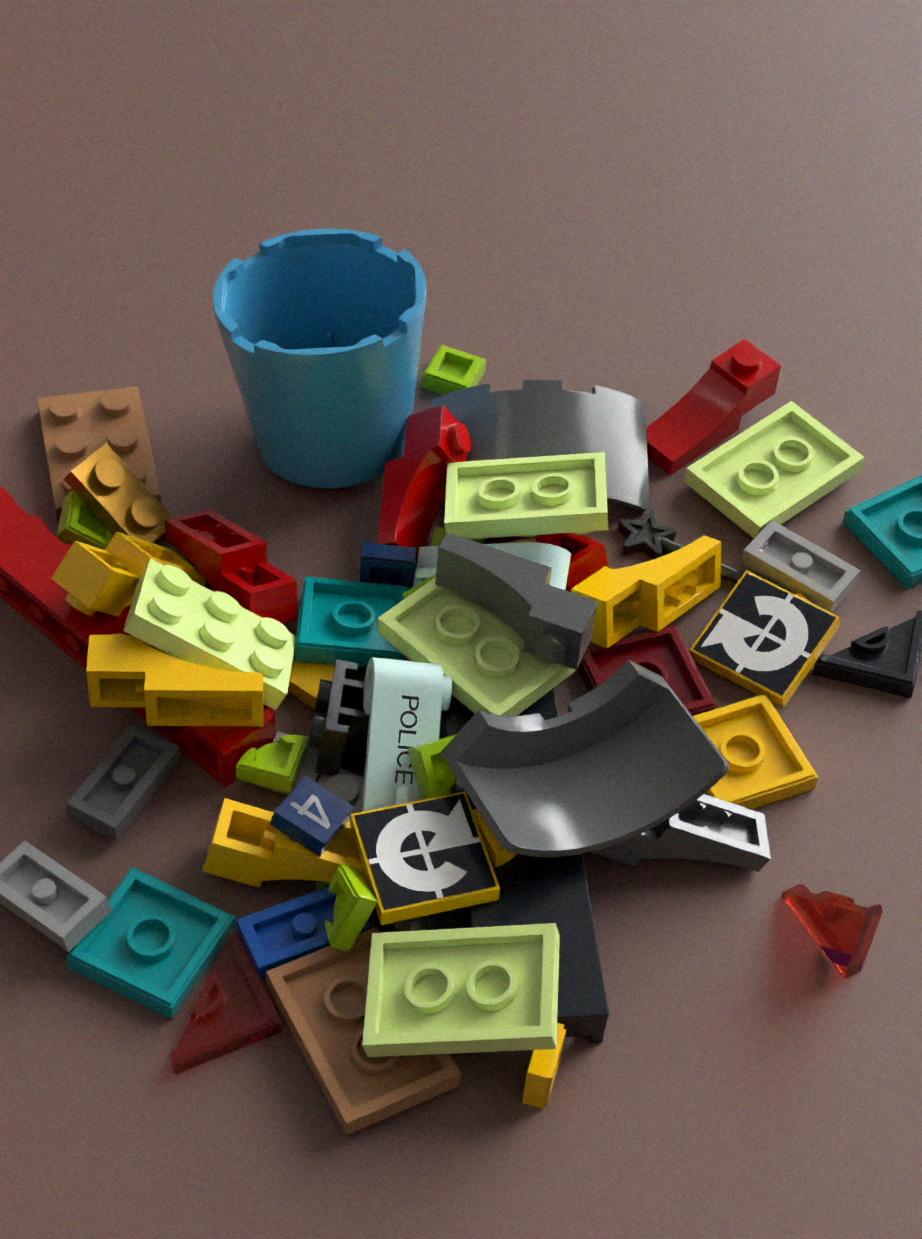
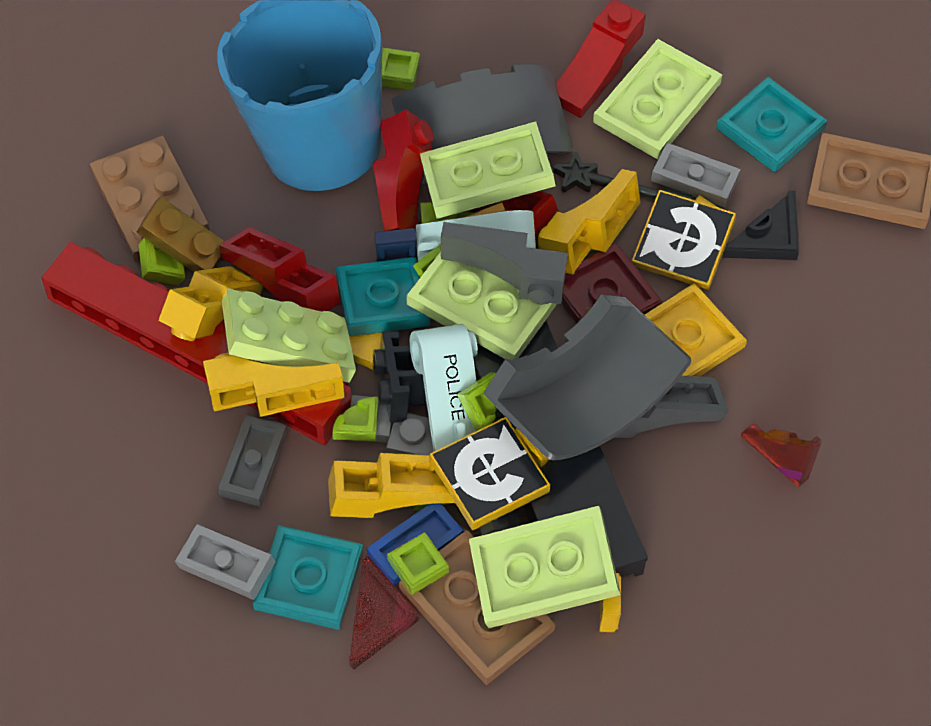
camera: 10 degrees left, 10 degrees up
(297, 952) = (418, 563): none -> lime tile
(312, 816) = (402, 461): dark blue tile -> none
(351, 907) = (447, 522): lime tile -> none

